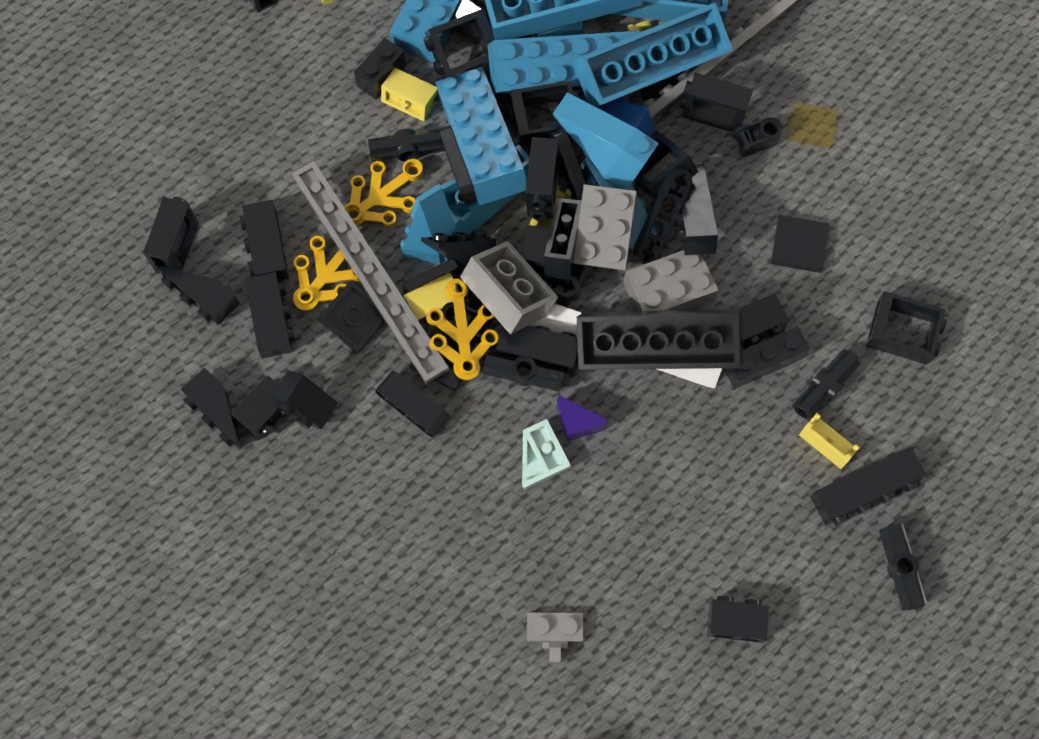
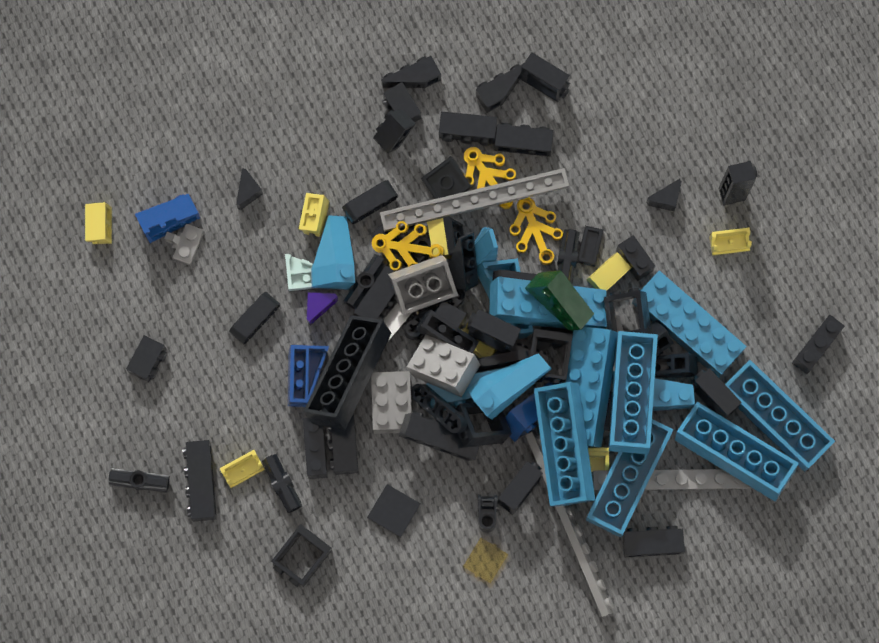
camera: 110 degrees right, 5 degrees up
(287, 56) = (666, 197): none -> black slope
(378, 126) = (590, 246): none -> black tile
(449, 571) = (248, 190): none -> black slope
(455, 469) = (314, 214): none -> light yellow hinge
(474, 106) = (560, 299): none -> dark green wedge
(507, 418) = (334, 257): none -> dark azure wedge
(528, 667) = (167, 217): none -> blue wedge
(625, 495) = (254, 316): none -> black beam
(677, 404) = (303, 371): none -> blue wedge

